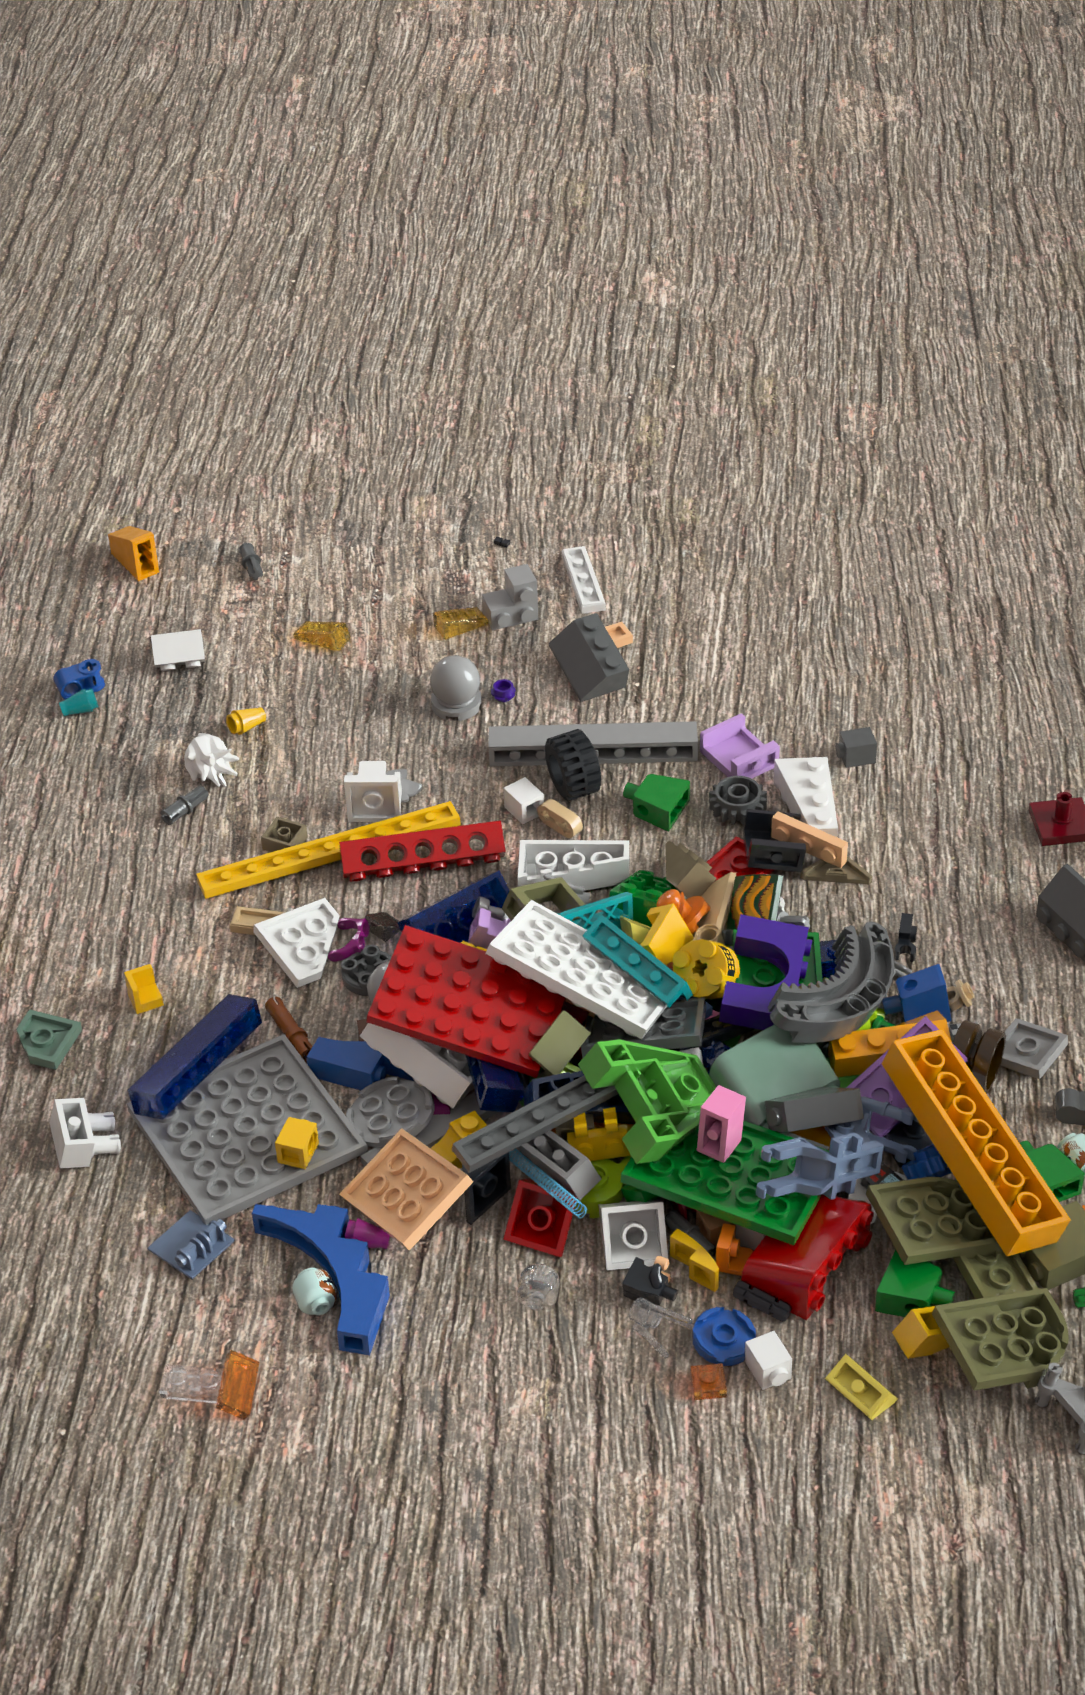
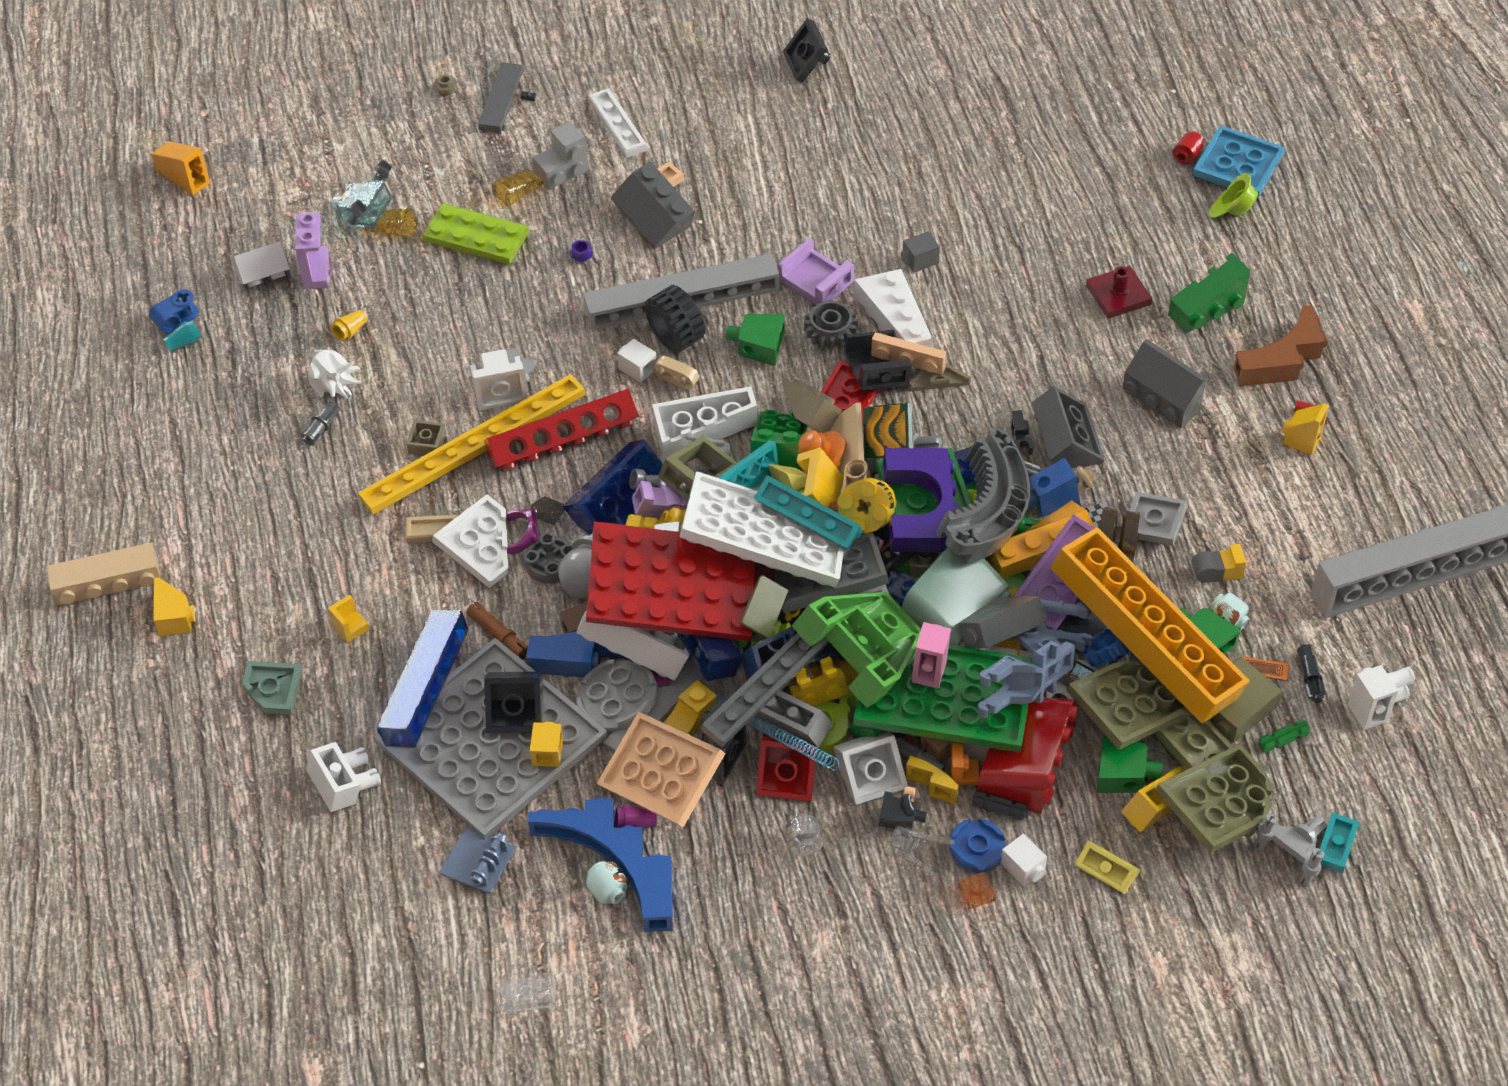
camera: 15 degrees left, 10 degrees up
(227, 656) = (311, 257): none -> lavender panel
(237, 1385) = (567, 986): clear orange tile -> none
(251, 560) = (297, 156): dark grey axle -> none
(277, 1093) = (513, 701): none -> black slope
(302, 609) = (365, 201): none -> clear light blue torso
(397, 656) = (476, 233): none -> lime plate
(421, 519) = (445, 85): none -> dark tan plate
(455, 688) = (538, 258): light grey tile -> none
(473, 538) = (500, 97): none -> dark grey tile
(798, 540) = (806, 50): none -> black tile
(959, 942) = (1067, 429): none -> dark grey slope

